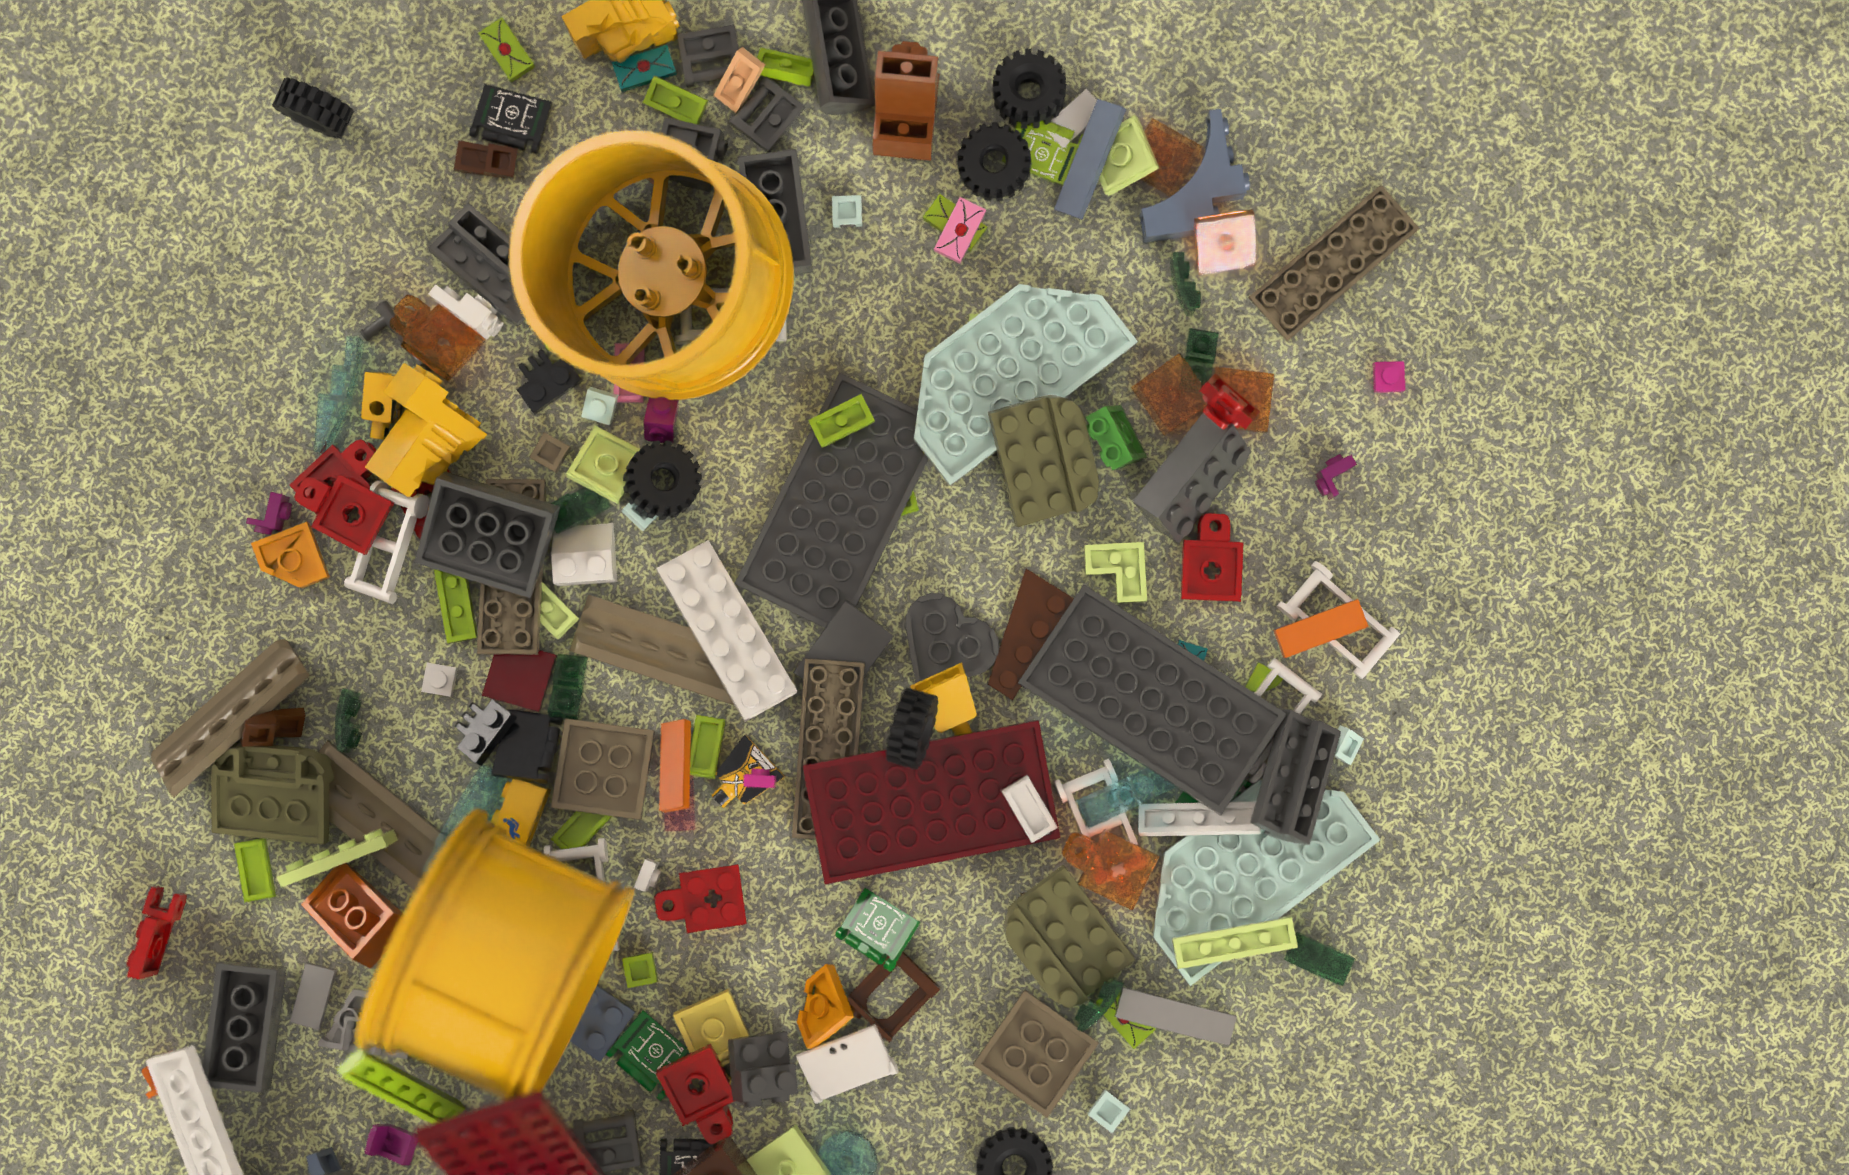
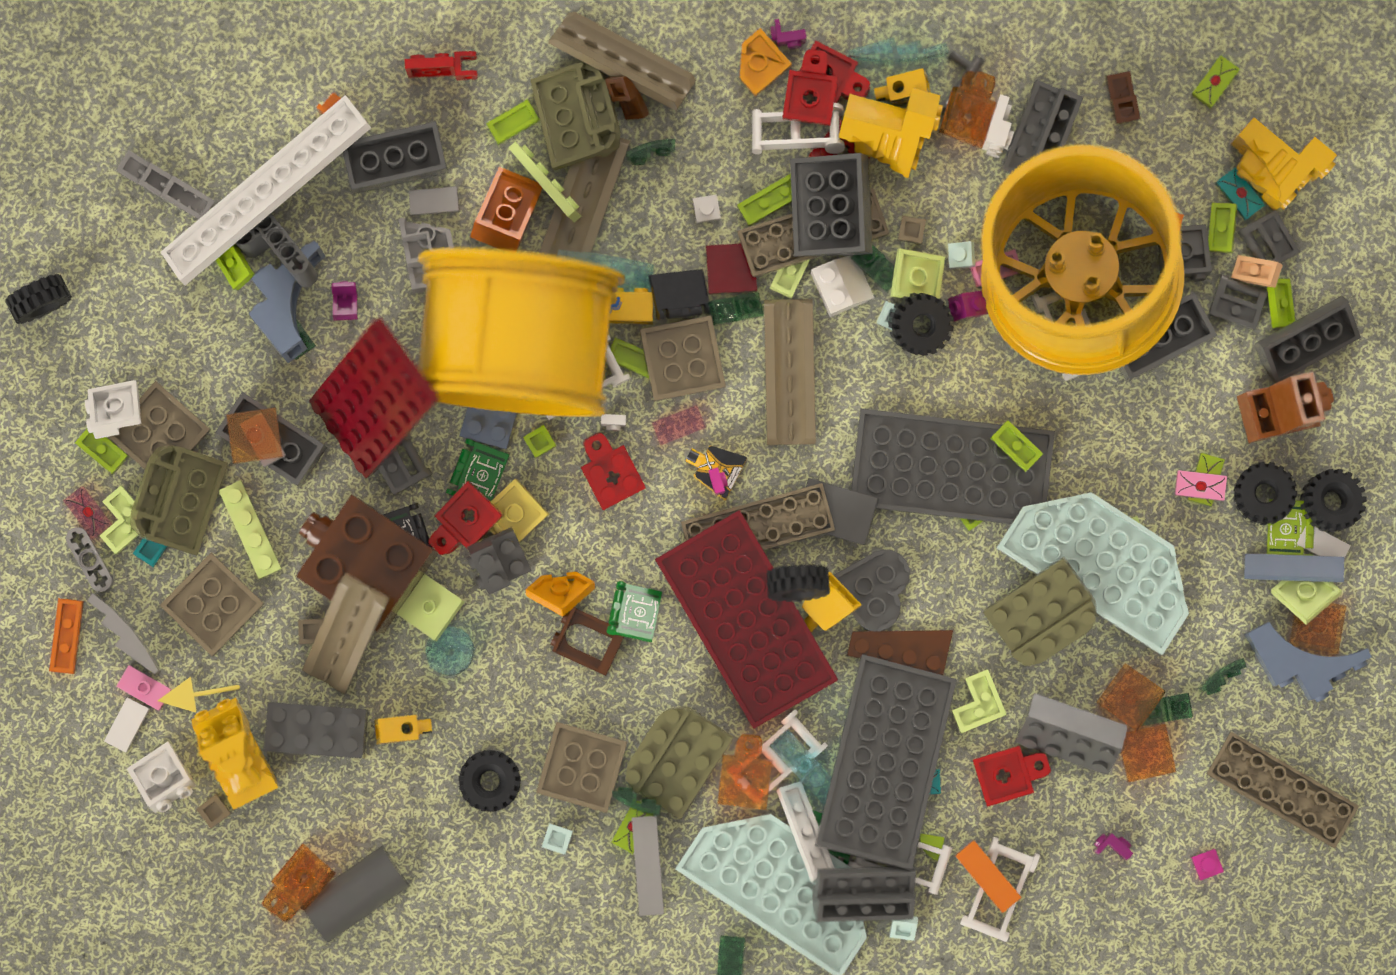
camera: 70 degrees right, 0 degrees up
(398, 1087) = (396, 286): lime plate -> none
(484, 730) = (680, 257): hinge -> none
(510, 118) = (1162, 104): black piece -> none
(546, 381) = (965, 206): black hinge -> none
(675, 765) = (704, 412): orange tile -> none
(706, 746) = (727, 430): lime tile -> none
(726, 631) = (822, 415): white plate -> none
(847, 211) = (1184, 392): light aqua plate -> none
(857, 1061) = (527, 630): white door -> none
(1029, 809) = (767, 696): white tile -> none
(1115, 437) = (1080, 663): bright green plate -> none
(1225, 241) = (1266, 697): clear orange plate -> none
(1226, 404) = (1136, 740): red plate -> none
(1234, 942) = (720, 890): yellowish green plate -> none

